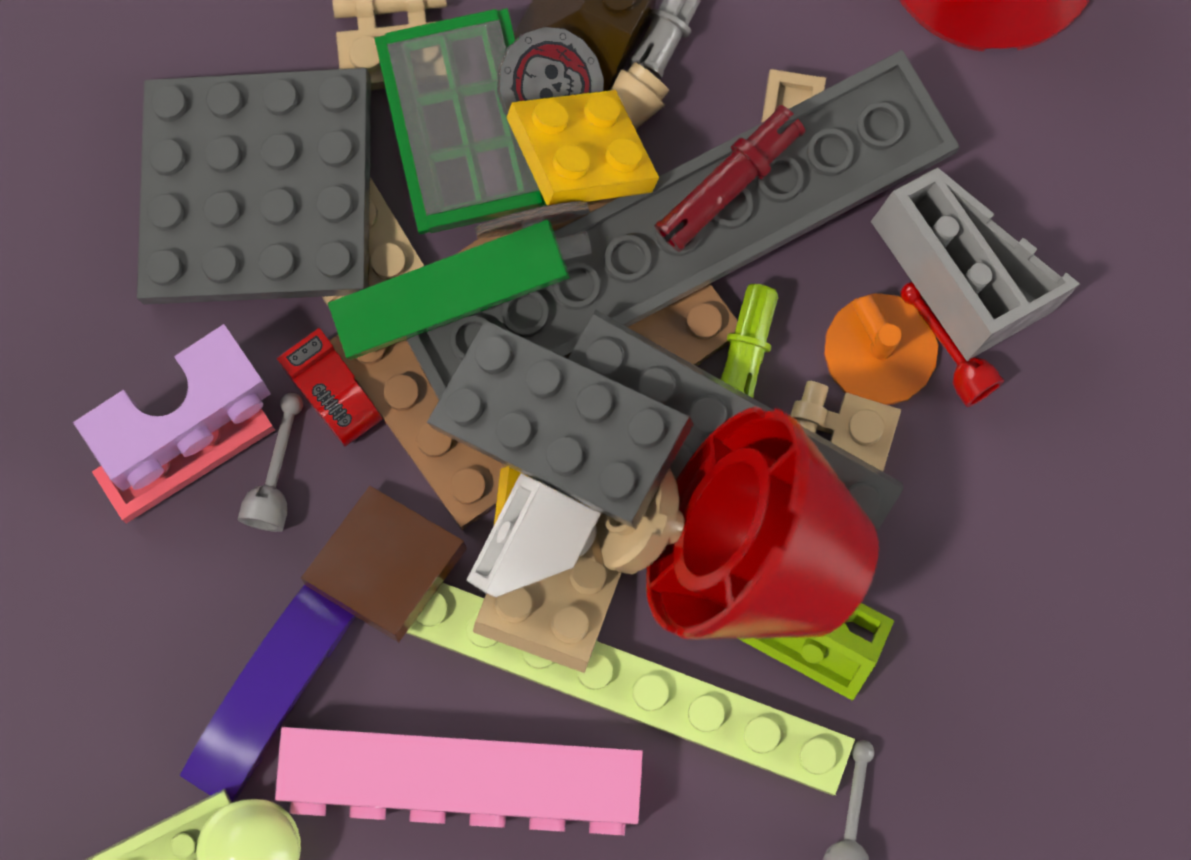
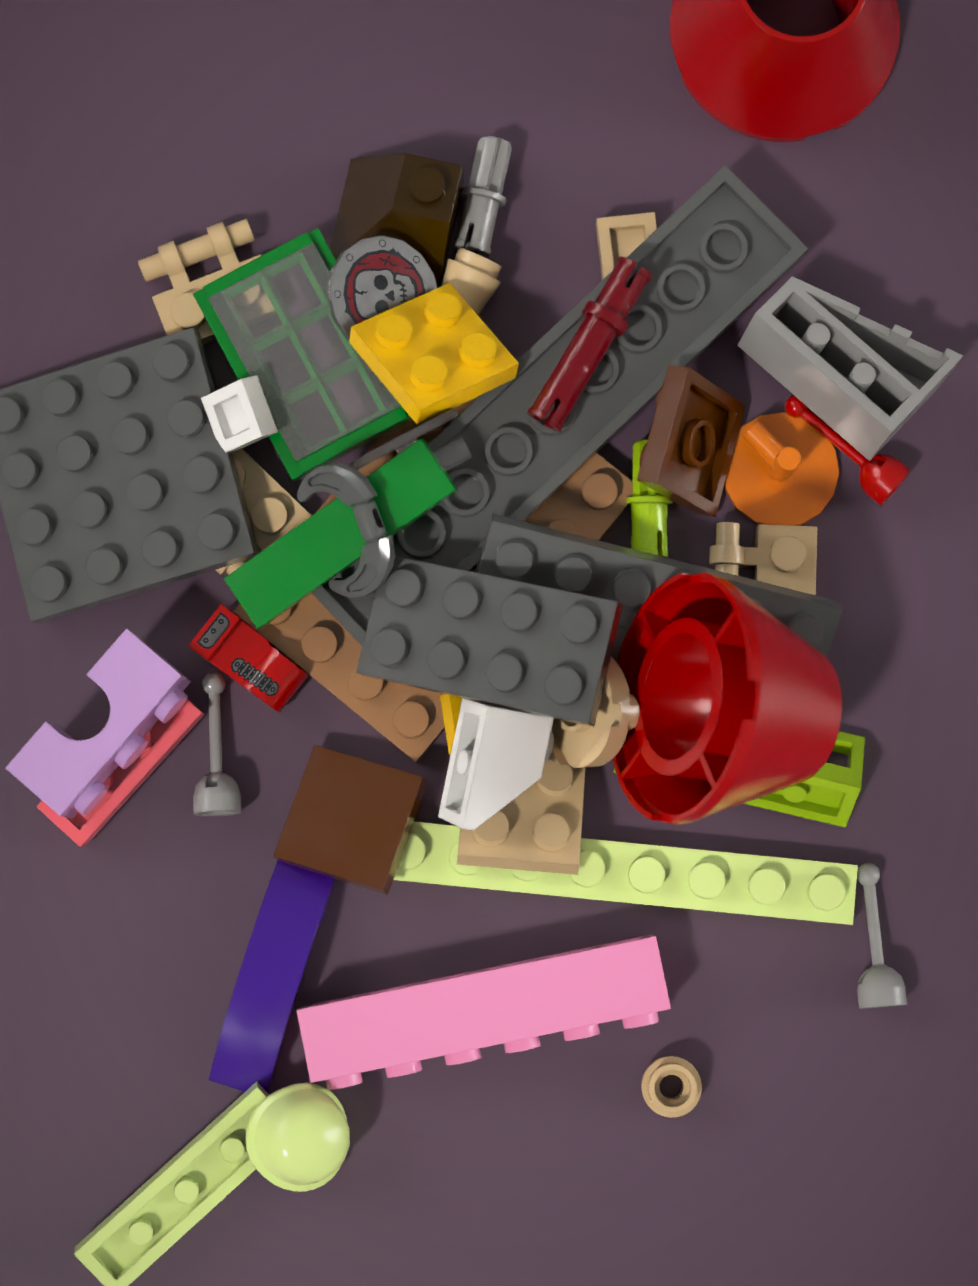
camera: 10 degrees left, 5 degrees up
(385, 157) = (239, 414): none -> white plate
(477, 316) = (378, 553): none -> dark grey piece
(802, 296) = (691, 441): none -> reddish brown plate

